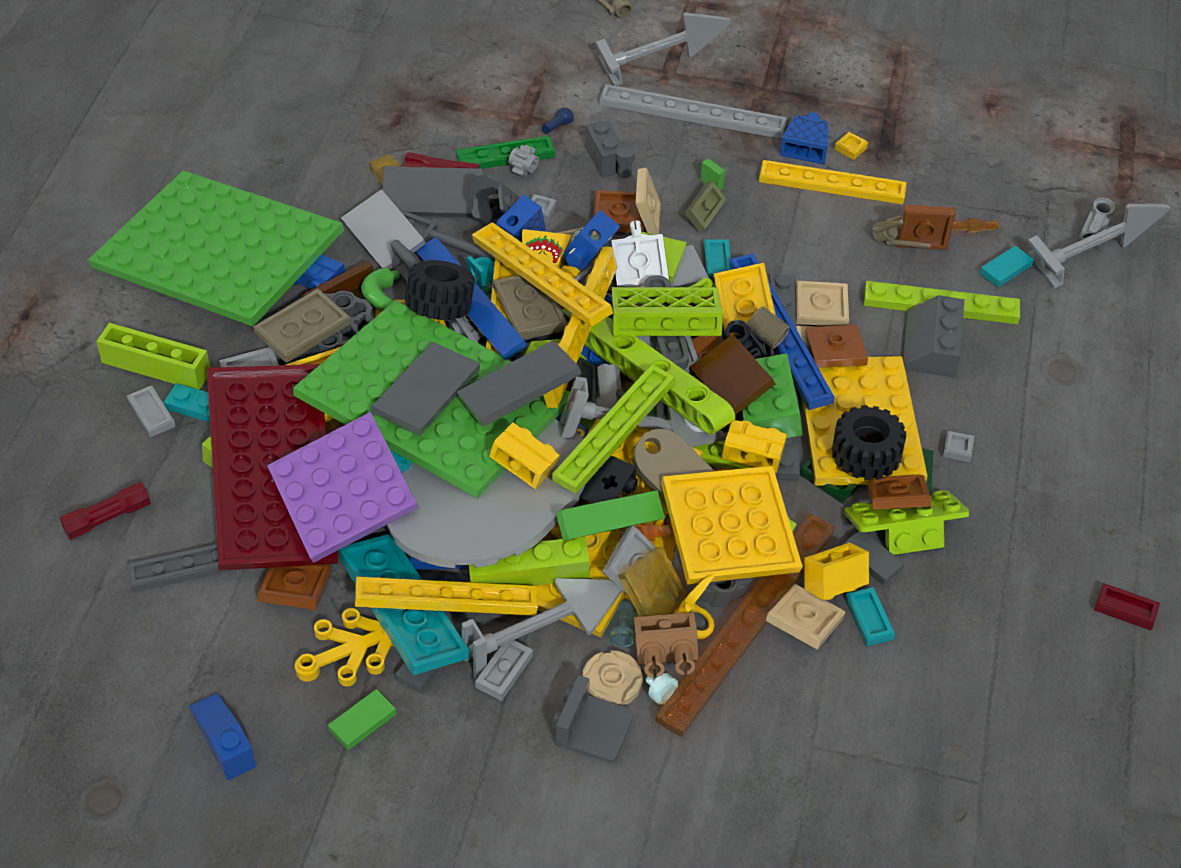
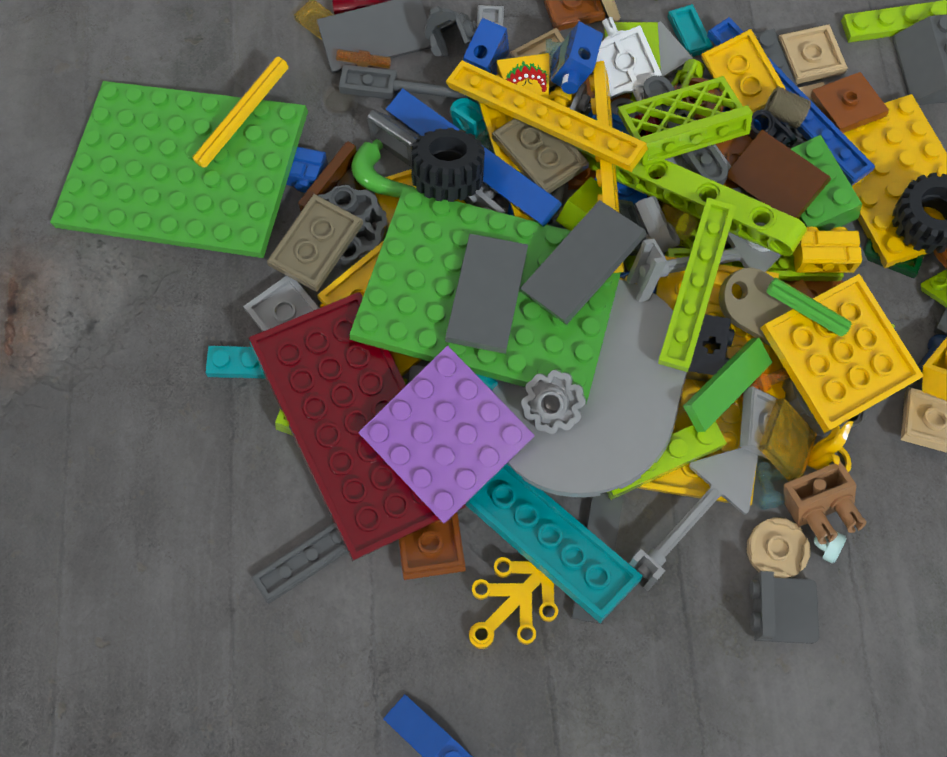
camera: 15 degrees left, 20 degrees up
(85, 519) = (200, 523): dark red axle -> none
(151, 411) = (195, 385): light grey tile -> none
(153, 356) = (173, 324): lime brick -> none
(283, 213) = (240, 112): none -> yellow axle
(362, 719) = (559, 676): bright green tile -> none
(378, 224) = (344, 96): light grey tile -> none
(413, 206) = (363, 58): none -> clear orange bar
(445, 482) = (553, 401): none -> light grey plant
(445, 596) = (594, 522): yellow plate -> none
(504, 669) = (674, 584): light grey plate -> none
(524, 455) = (621, 345): yellow brick -> none
(709, 473) = (809, 307): none -> bright green axle
(738, 634) = (879, 466): clear orange plate -> none

